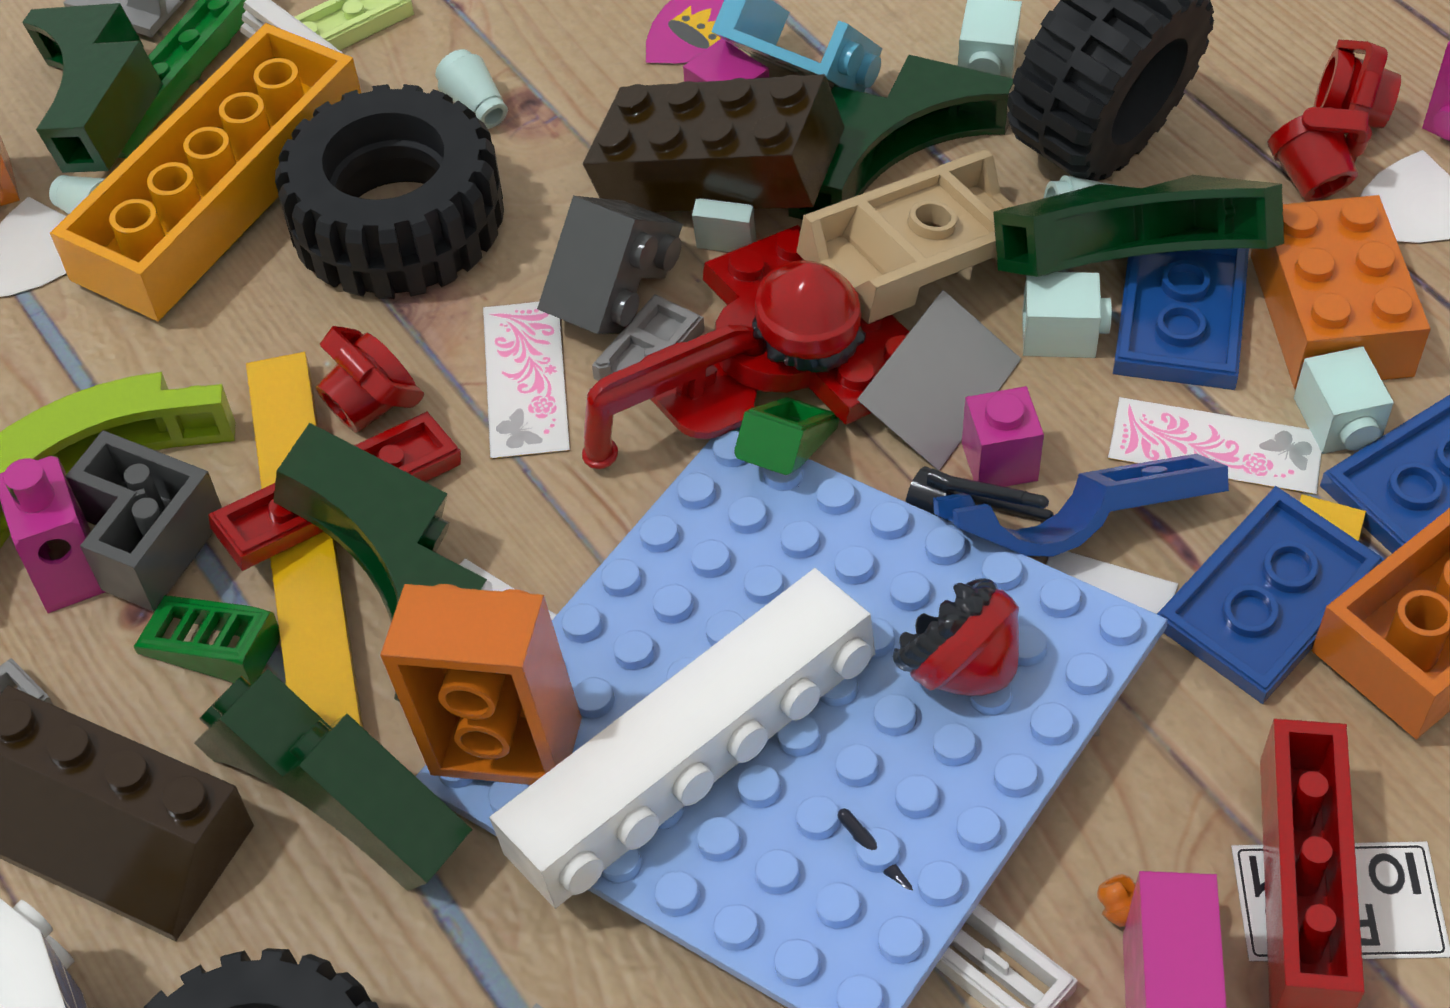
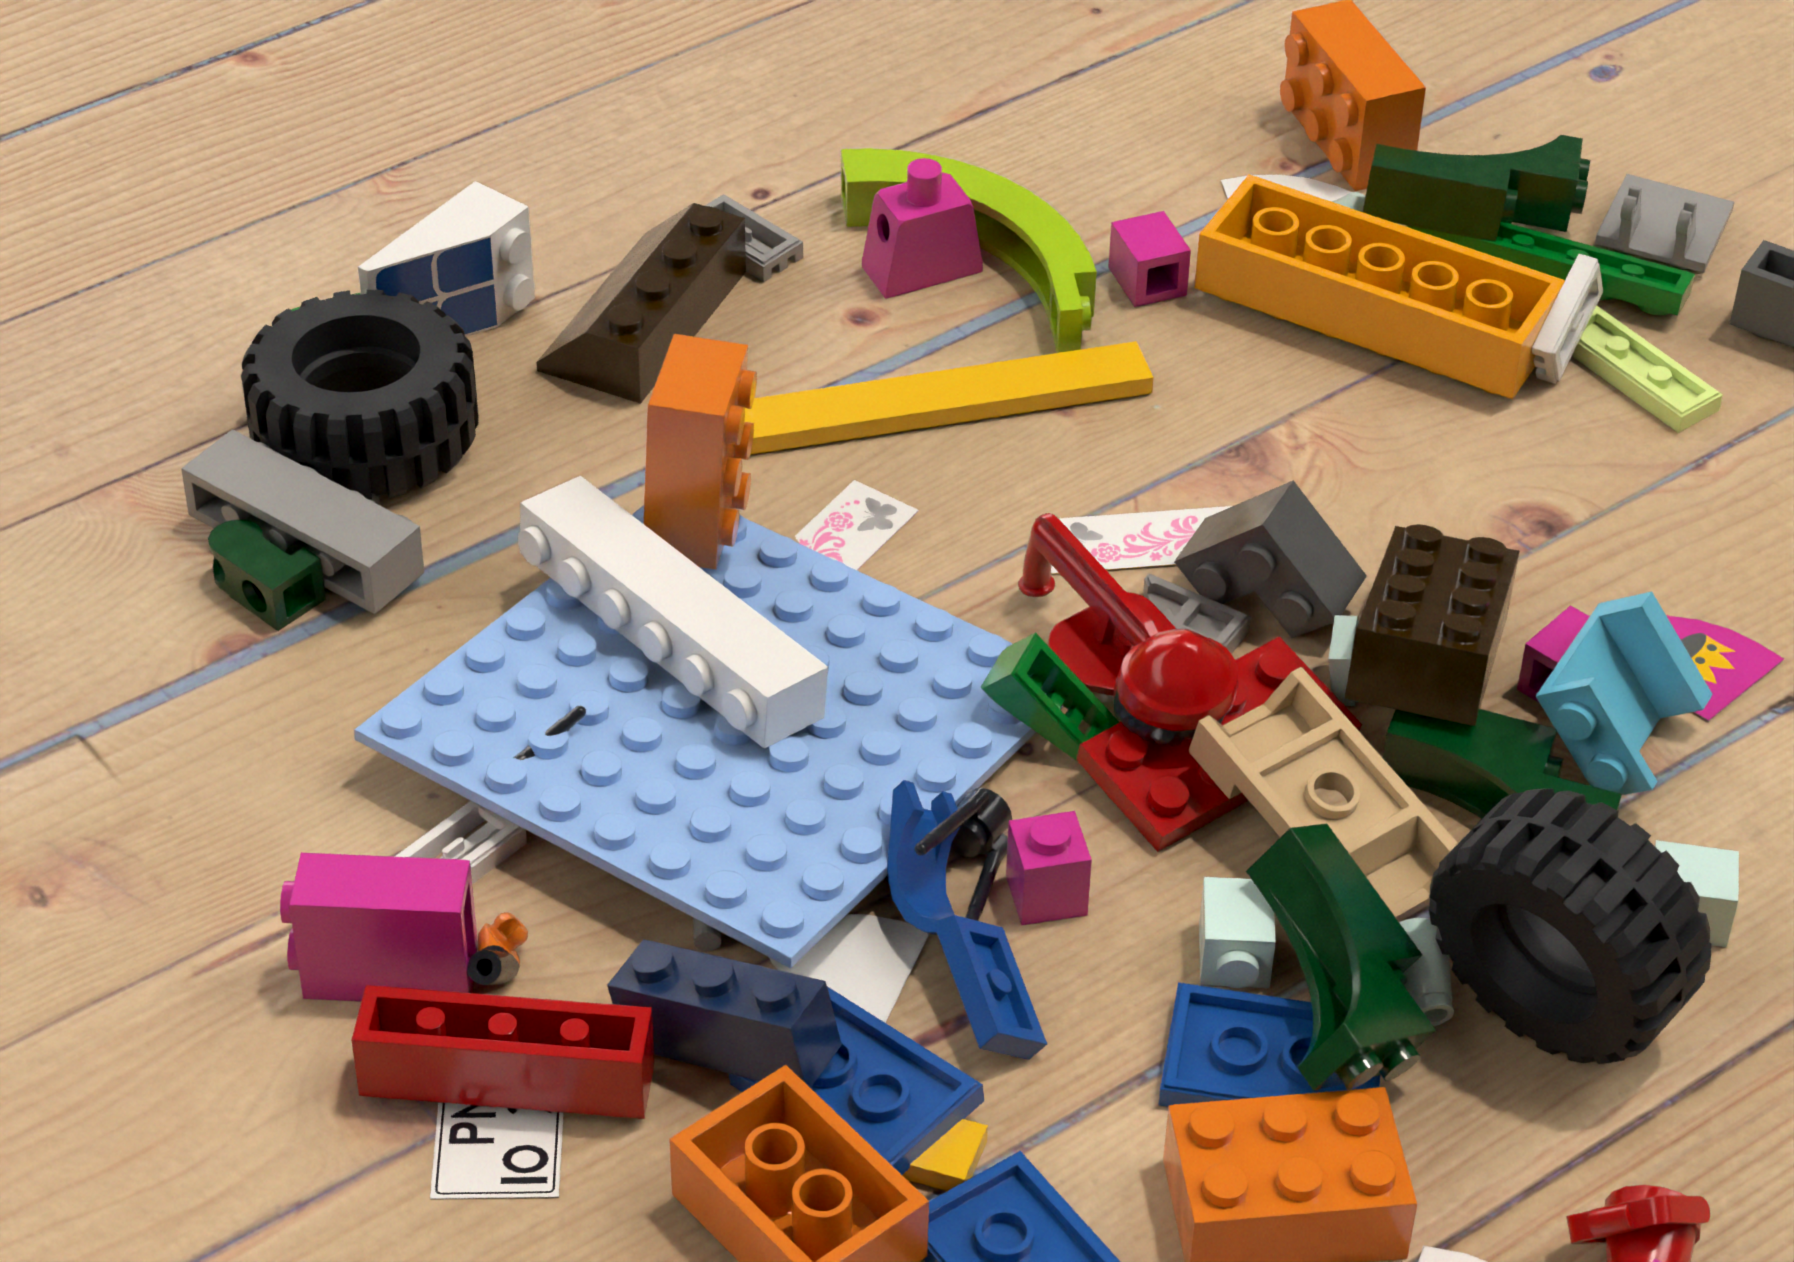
camera: 85 degrees right, 10 degrees down
(116, 342) = (1149, 258): none -> dark pink brick
(145, 514) = (936, 290): dark grey brick -> none
(254, 626) = (820, 352): green slope -> none
(260, 529) = (979, 406): red tile -> none
(335, 774) = (612, 432): dark green arch -> none
(365, 379) = (1107, 413): red piece -> none
(373, 512) = (909, 425): dark green arch -> none
(400, 239) = (1346, 453): black tyre -> none
(469, 81) = (1542, 467): light aqua cone -> none
(932, 372) = (1147, 830): light grey sticker -> none
(969, 644) = (738, 771): red hair -> none
(1240, 675) = (729, 1012): none -> dark blue brick
(1250, 448) = (1075, 1081): white sticker -> none
(1317, 151) = (1520, 1188): red piece -> none
(1343, 400) = (1118, 1171): light aqua brick -> none

